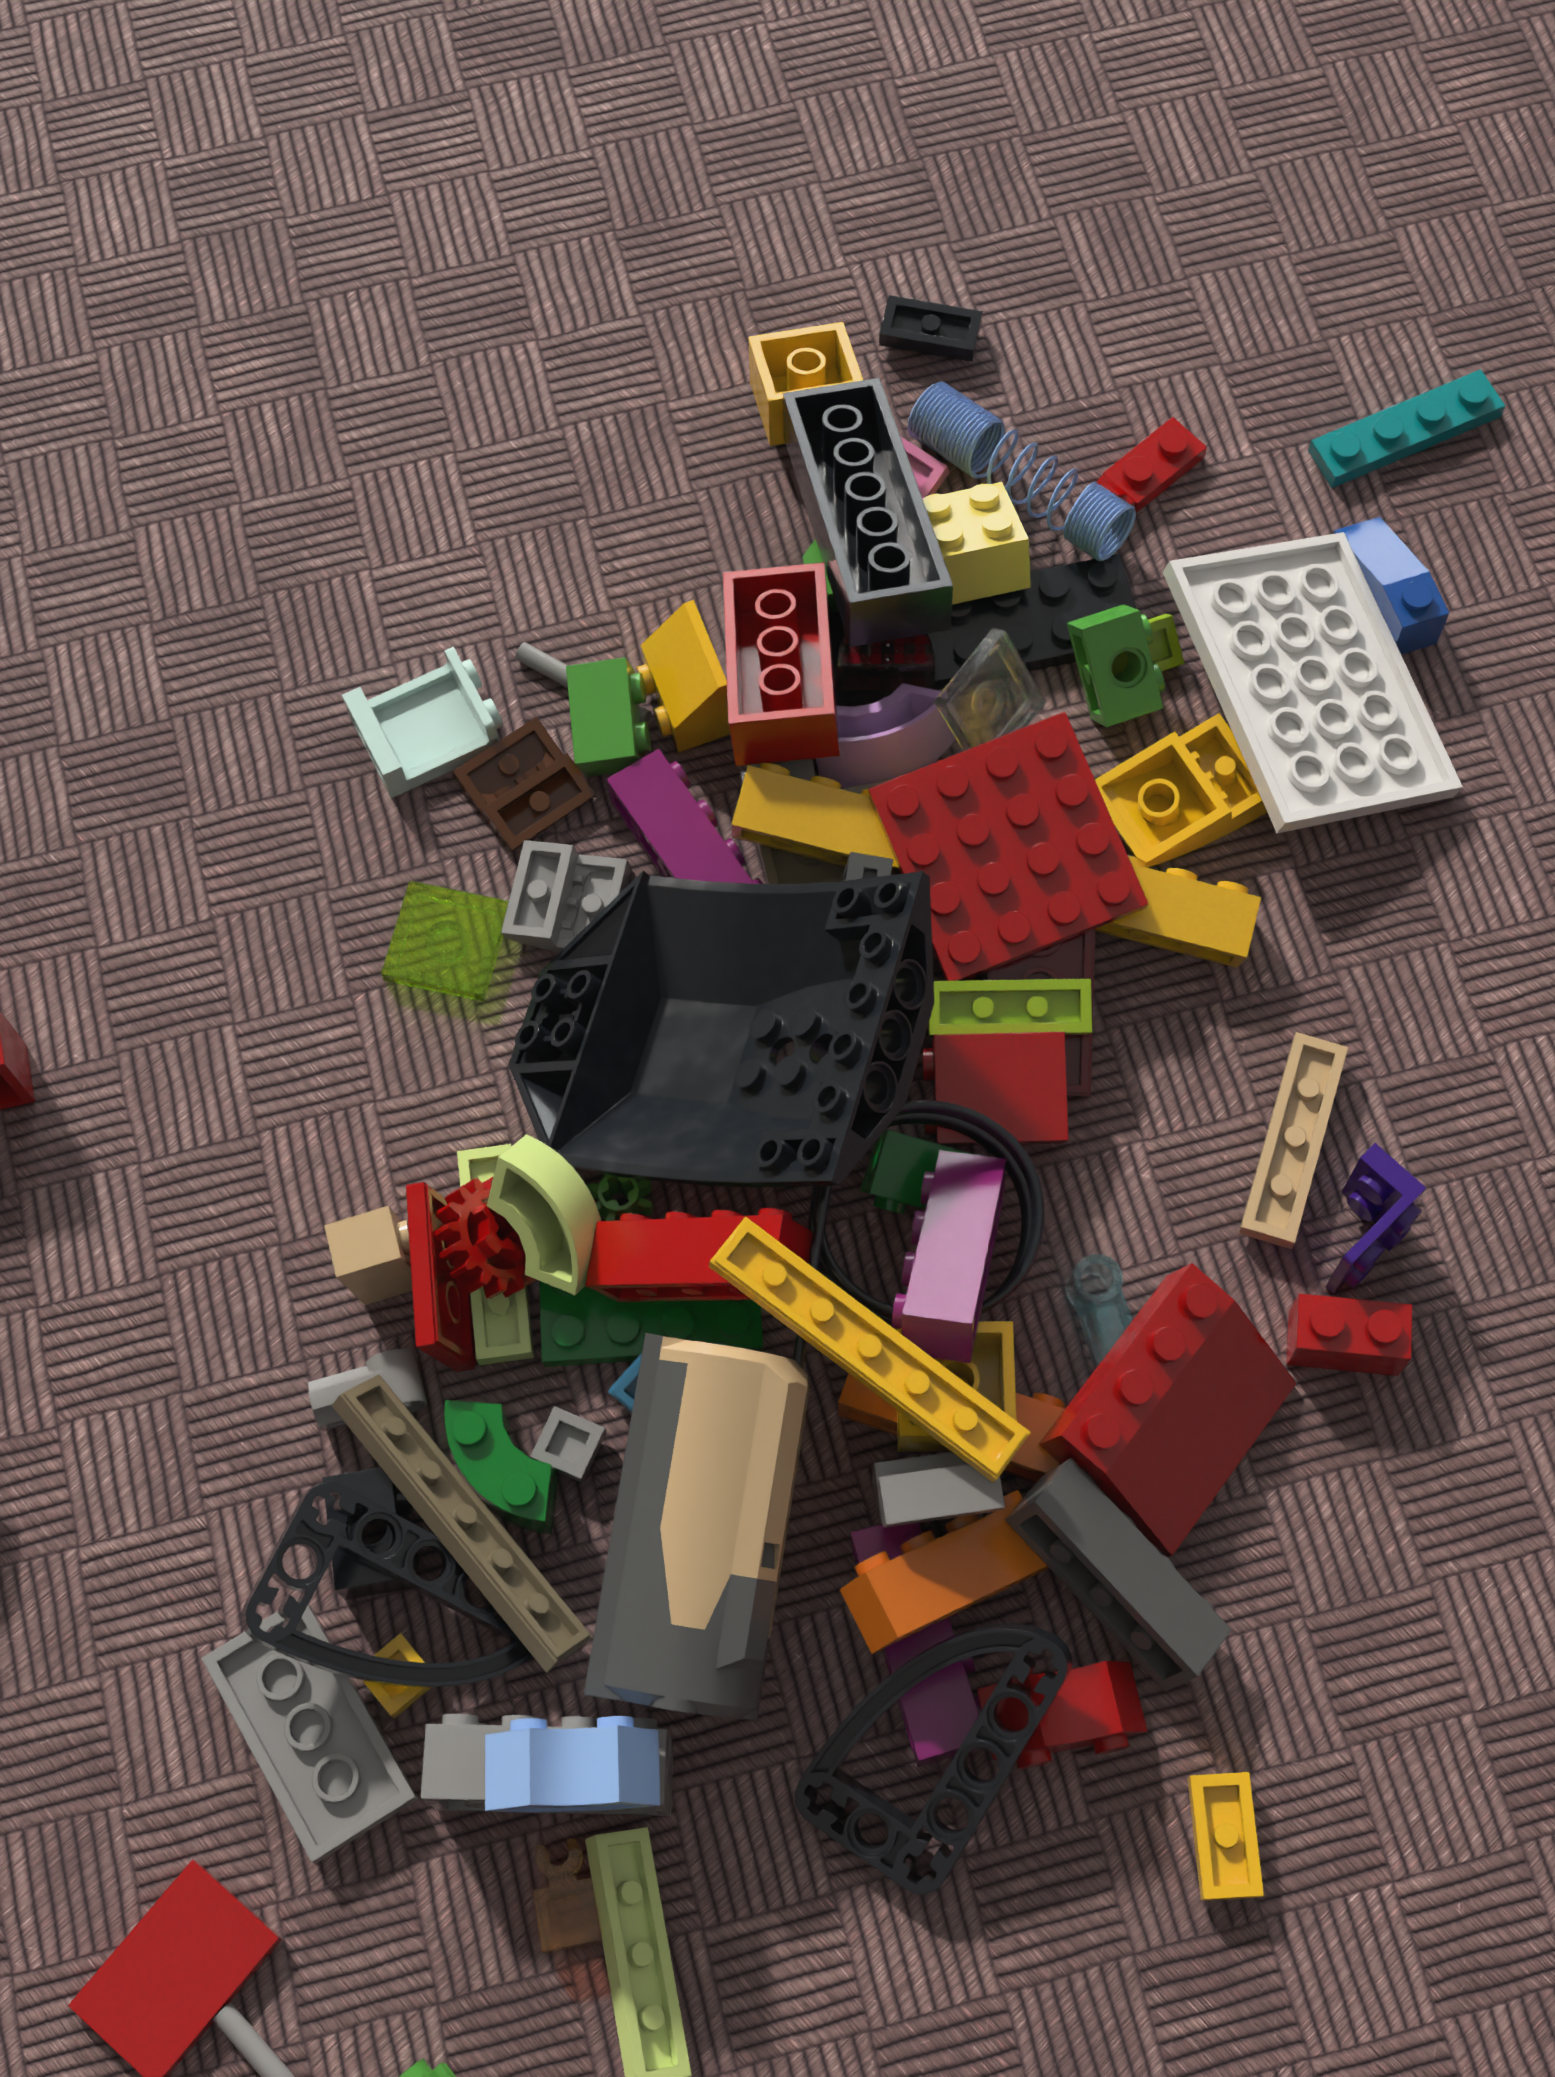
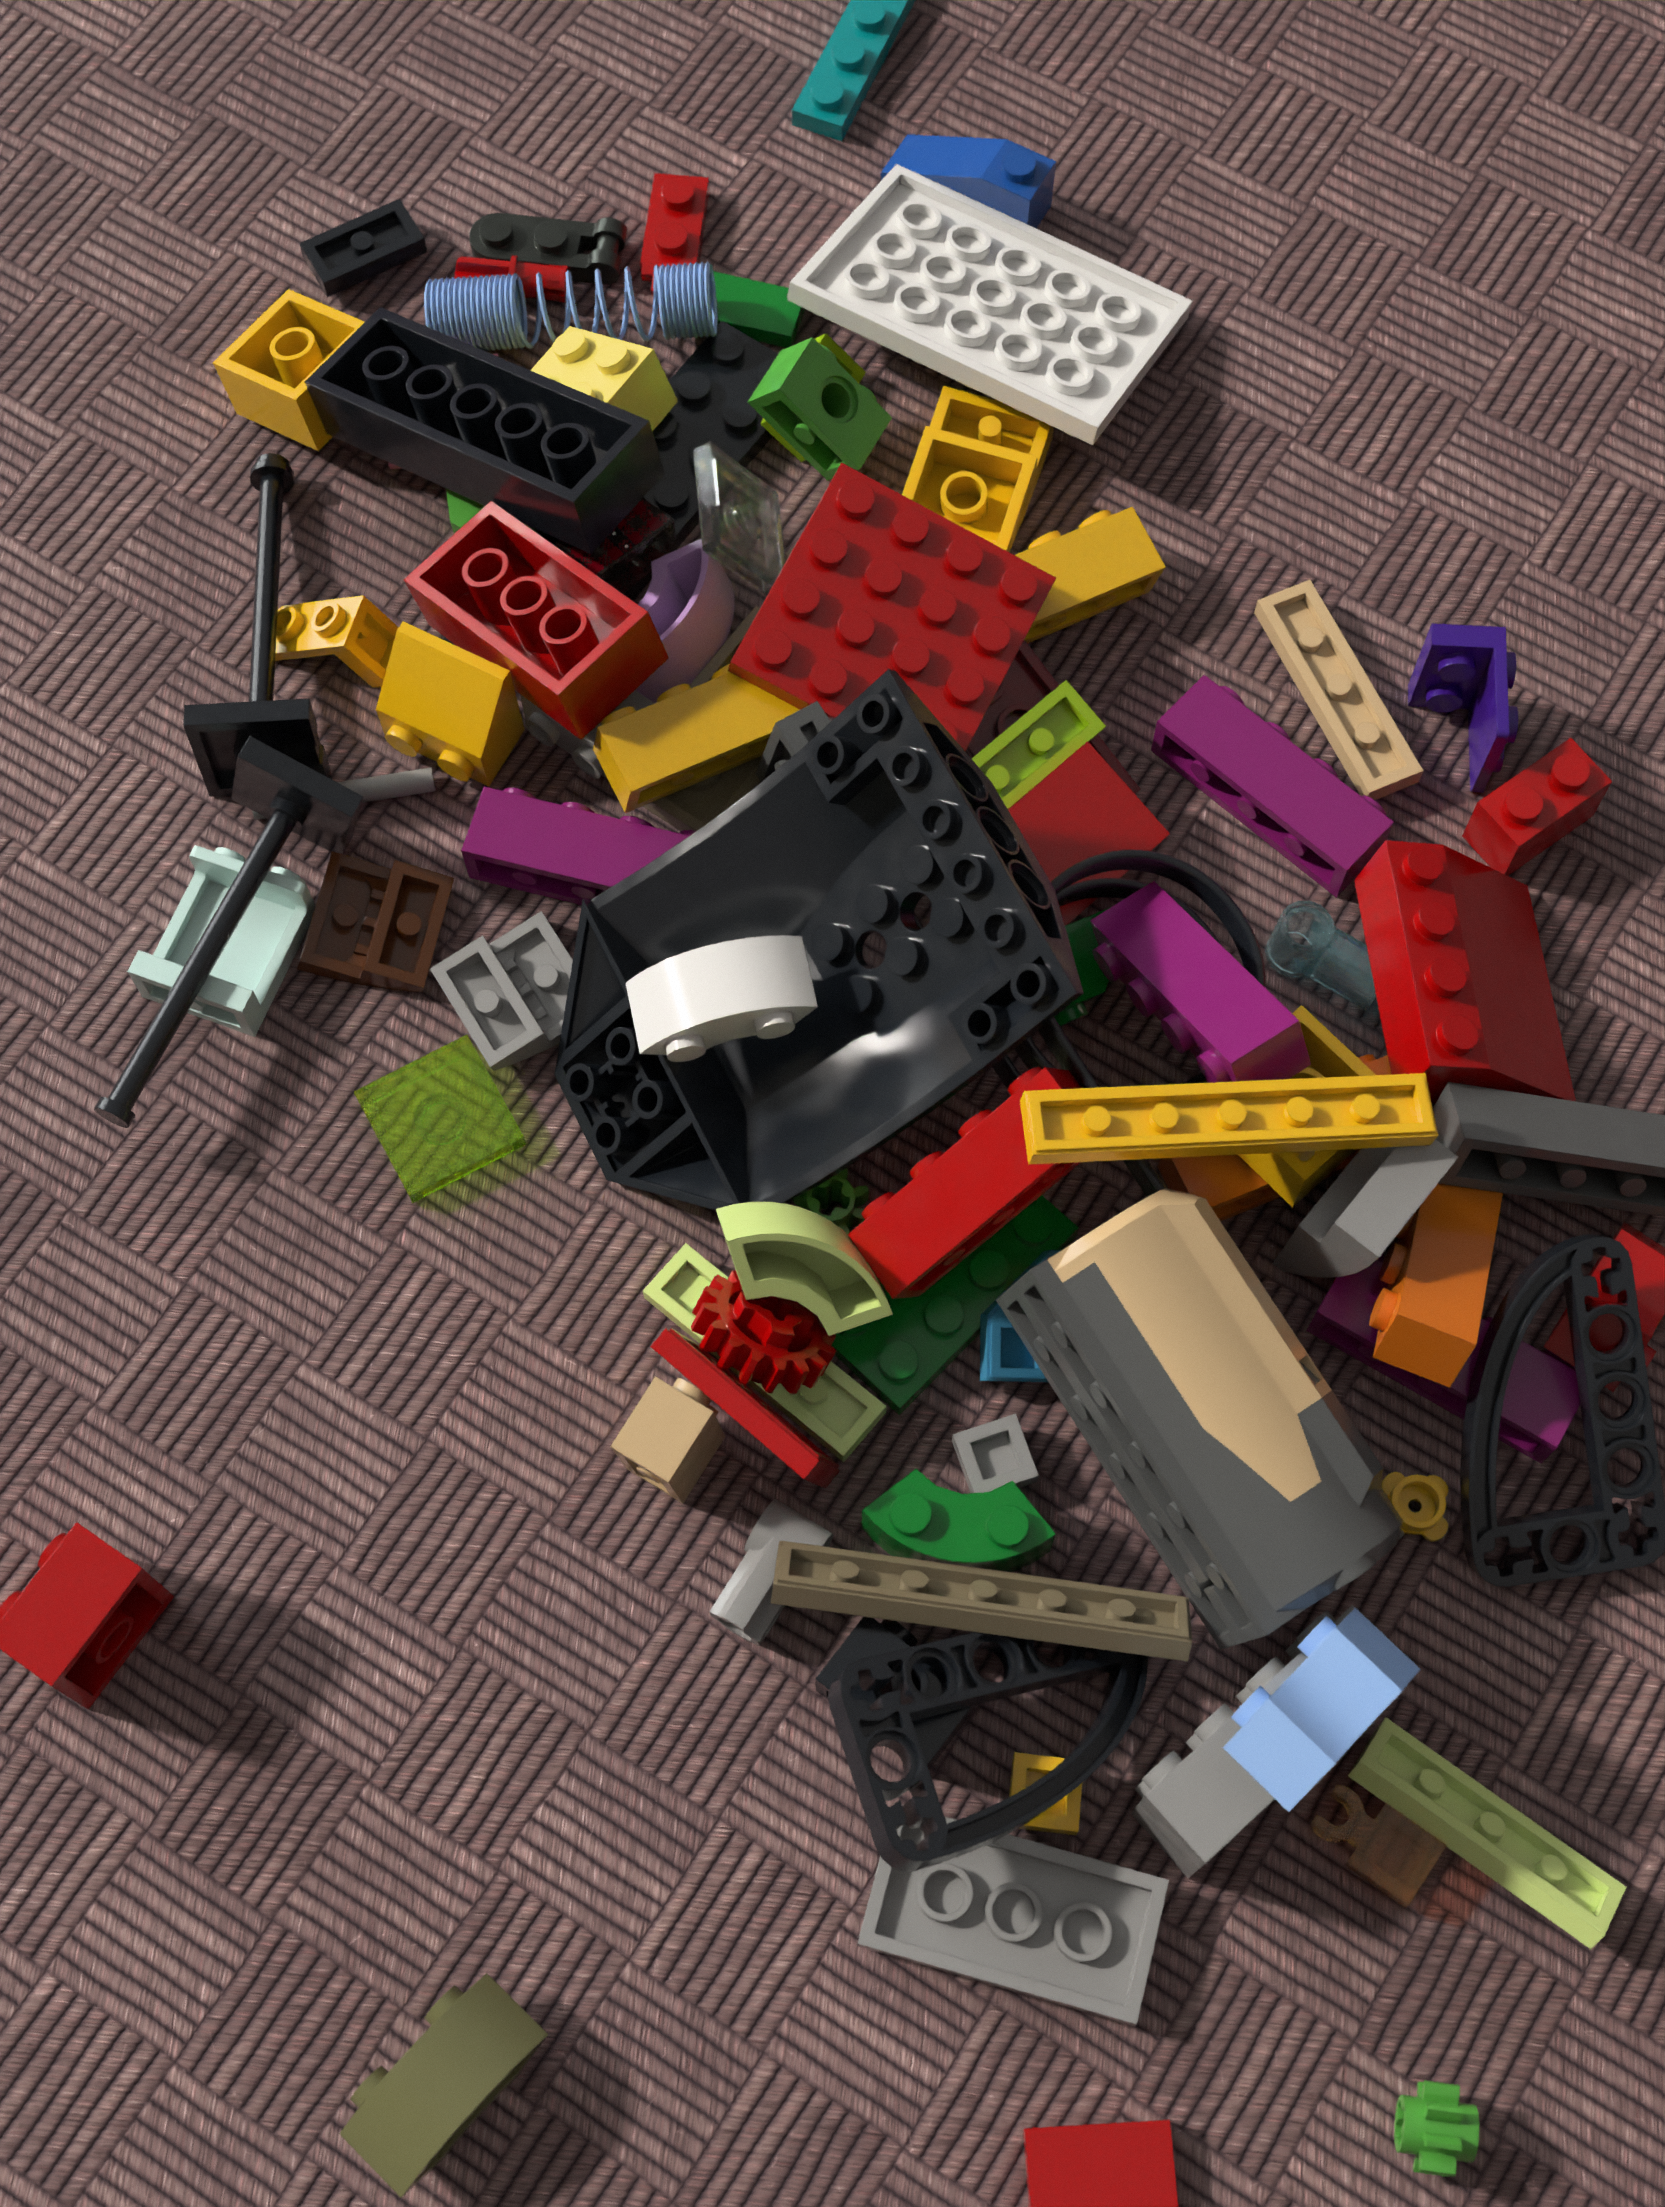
camera: 45 degrees left, 0 degrees up
(528, 666) = (293, 801): none -> black tile
(554, 613) = (289, 725): none -> black tile
(606, 716) = (405, 798): bright green brick -> none
(658, 1002) = (721, 995): none -> white brick
(669, 574) = (339, 627): none -> yellow bracket
(784, 1715) = (1429, 1493): none -> yellow plate
(1012, 418) = (552, 275): none -> red axle
(1055, 416) = (552, 243): none -> pearl dark grey plate
(1145, 558) = (757, 309): none -> green tile
(1180, 1164) = (1271, 784): none -> magenta brick

